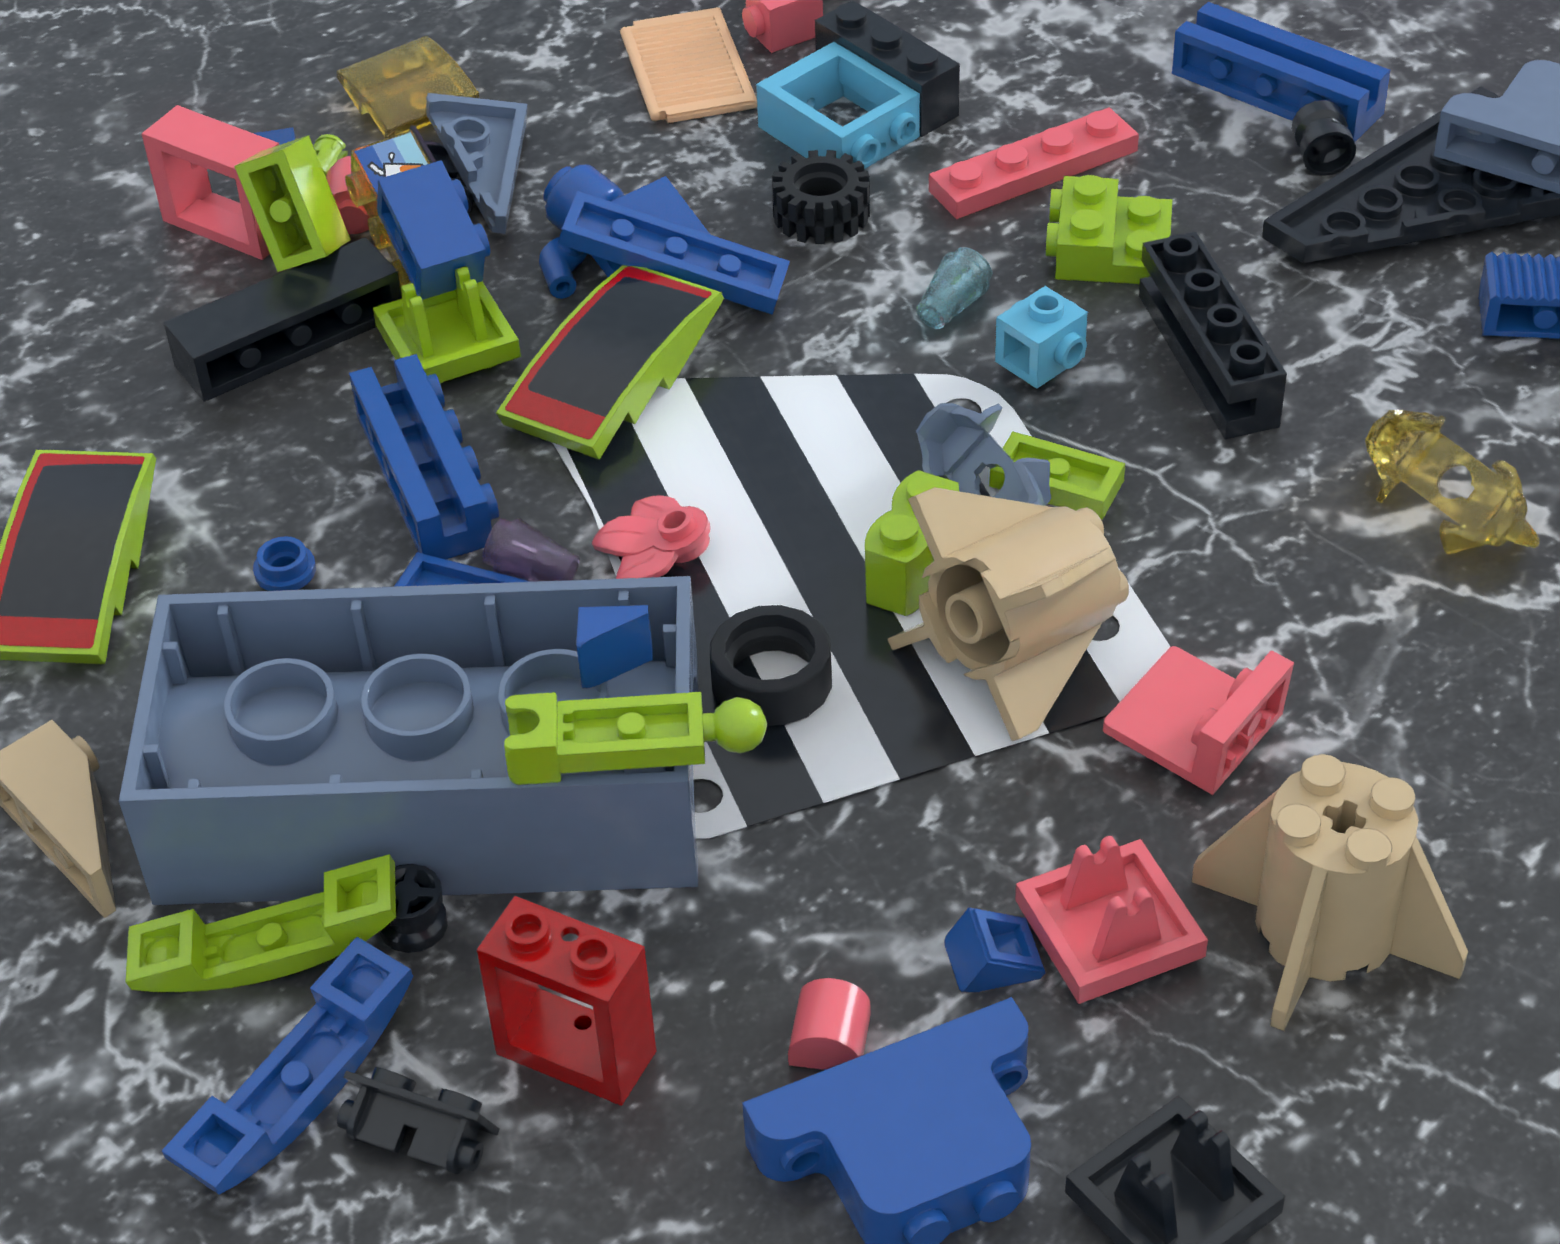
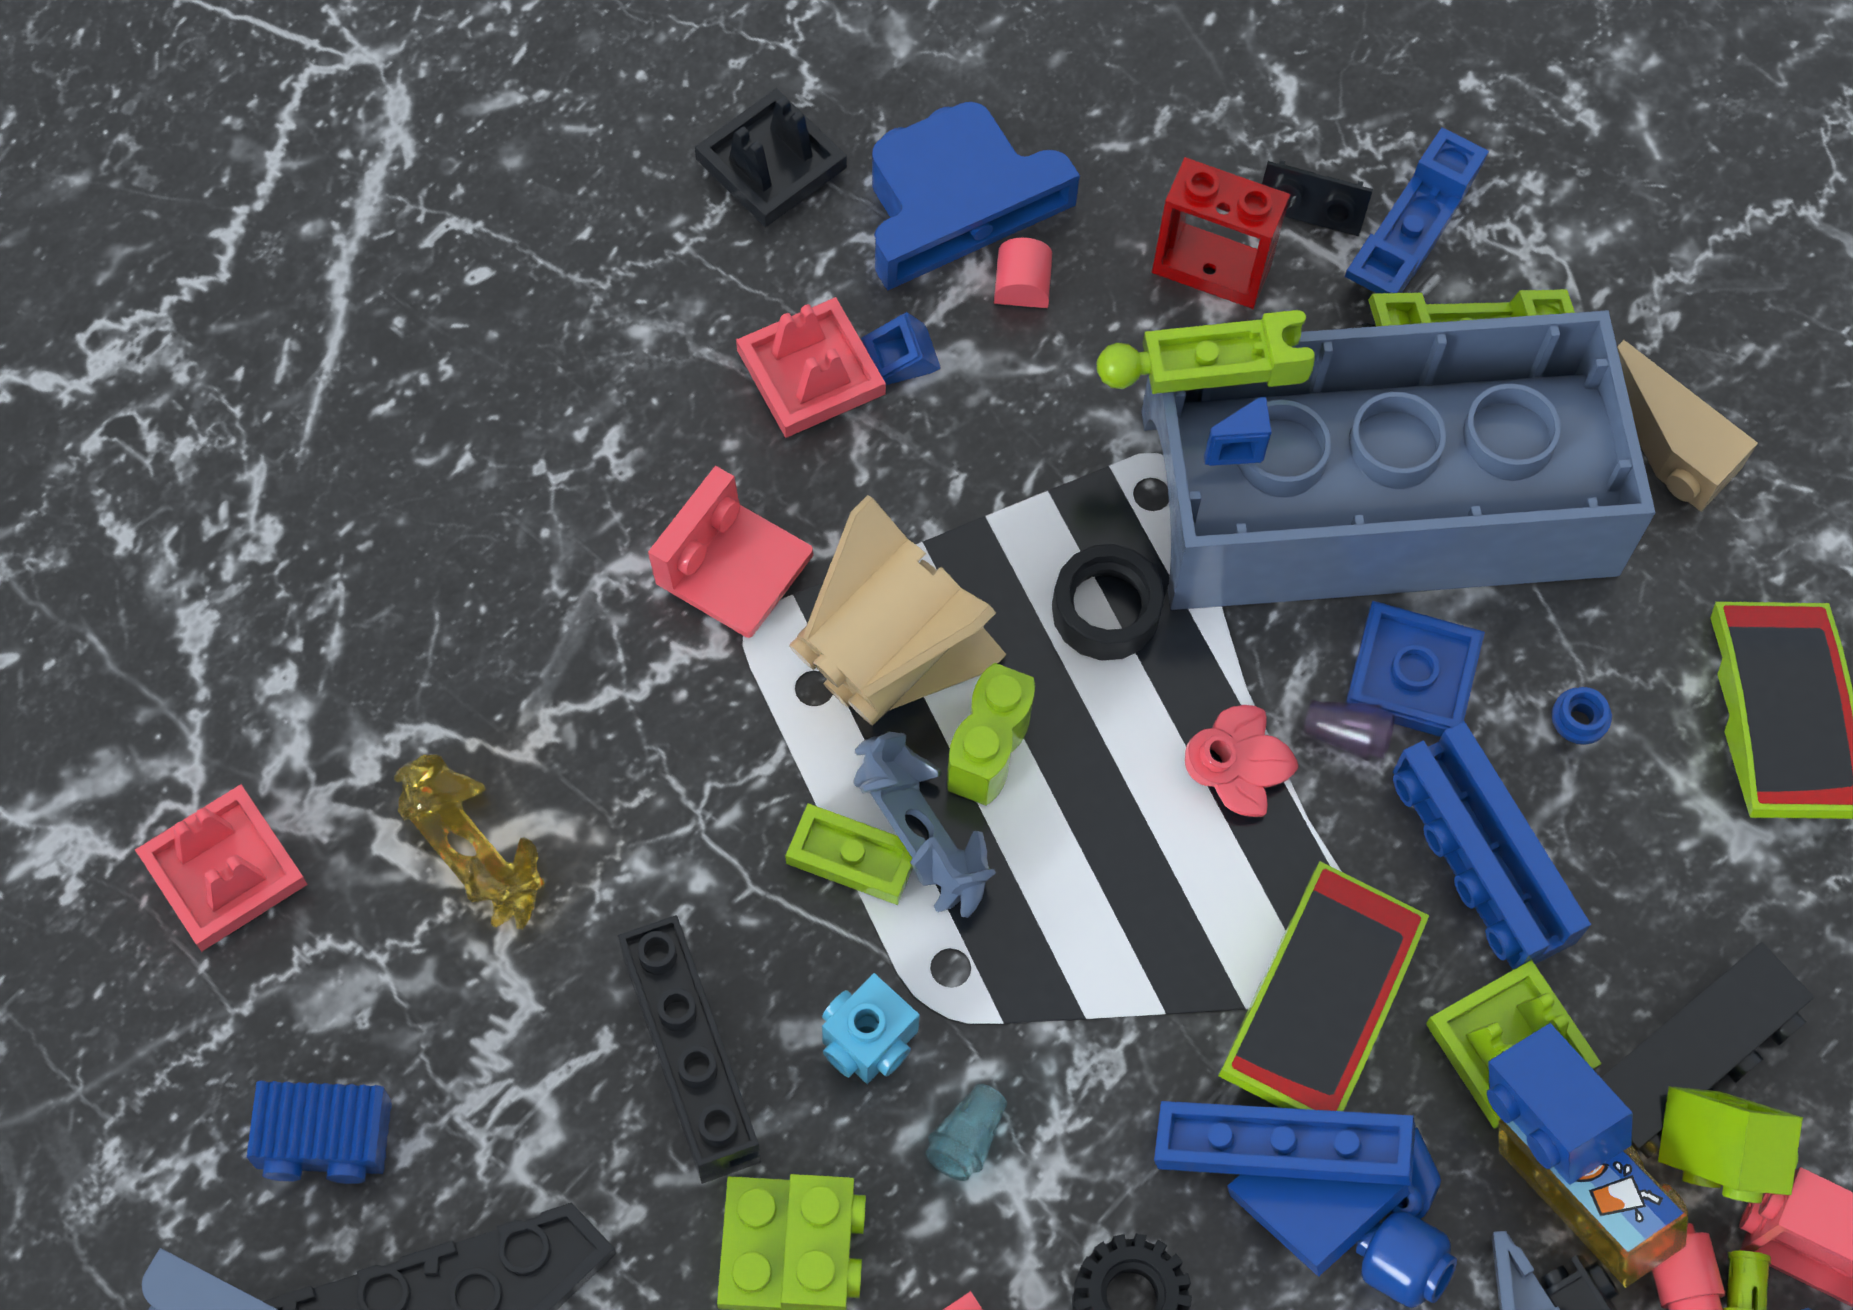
camera: 170 degrees right, 20 degrees up
(1335, 878) = (634, 366): tan brick -> none

